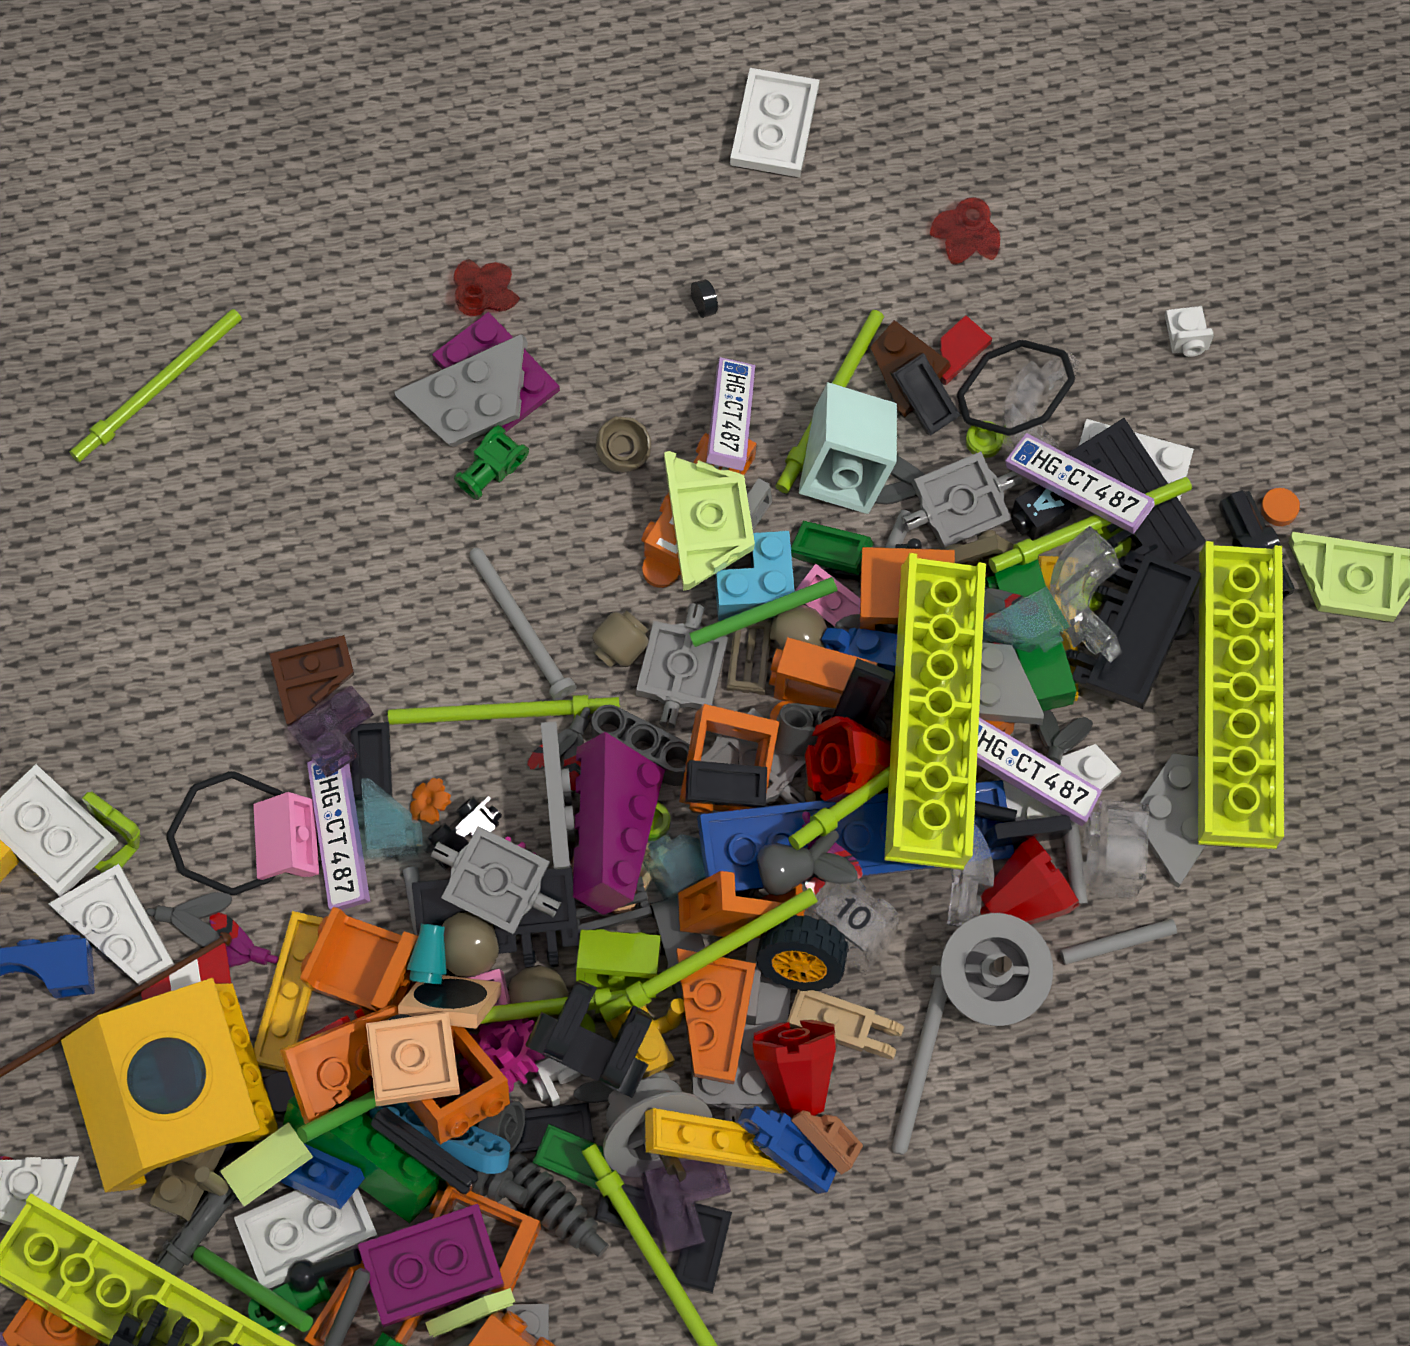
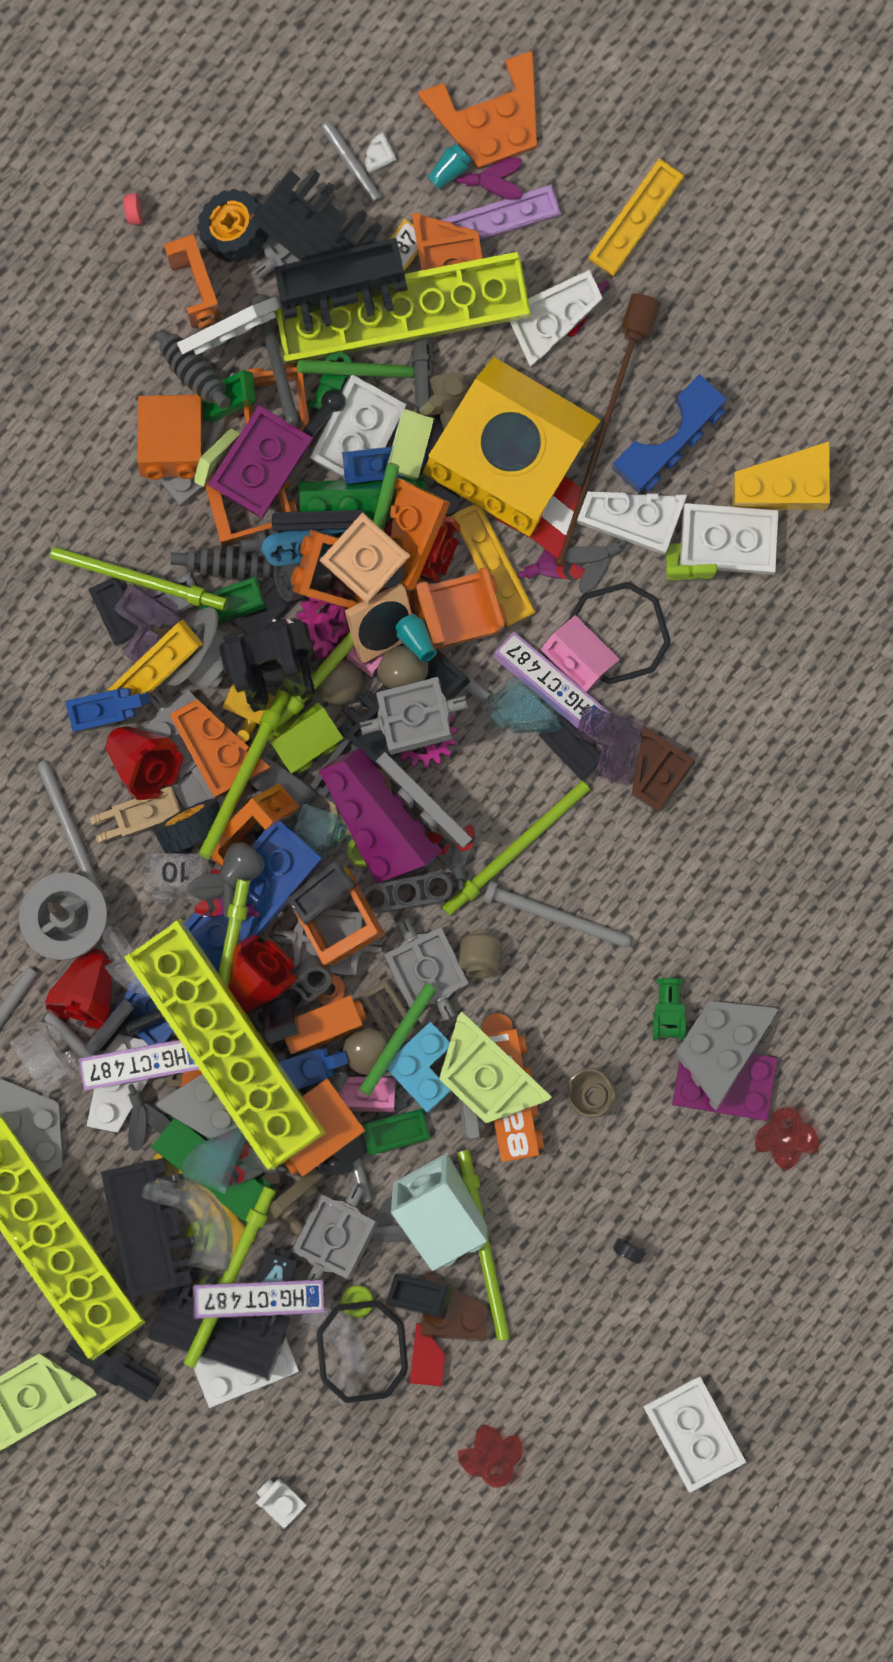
camera: 145 degrees right, 15 degrees up
(429, 800) = (511, 749): orange plant -> none
(471, 814) = (477, 733): black hinge -> none
(731, 414) = (535, 1169): tile -> none
(830, 1138) = (86, 733): nougat tile -> none
(1280, 506) = (120, 1412): orange tile -> none

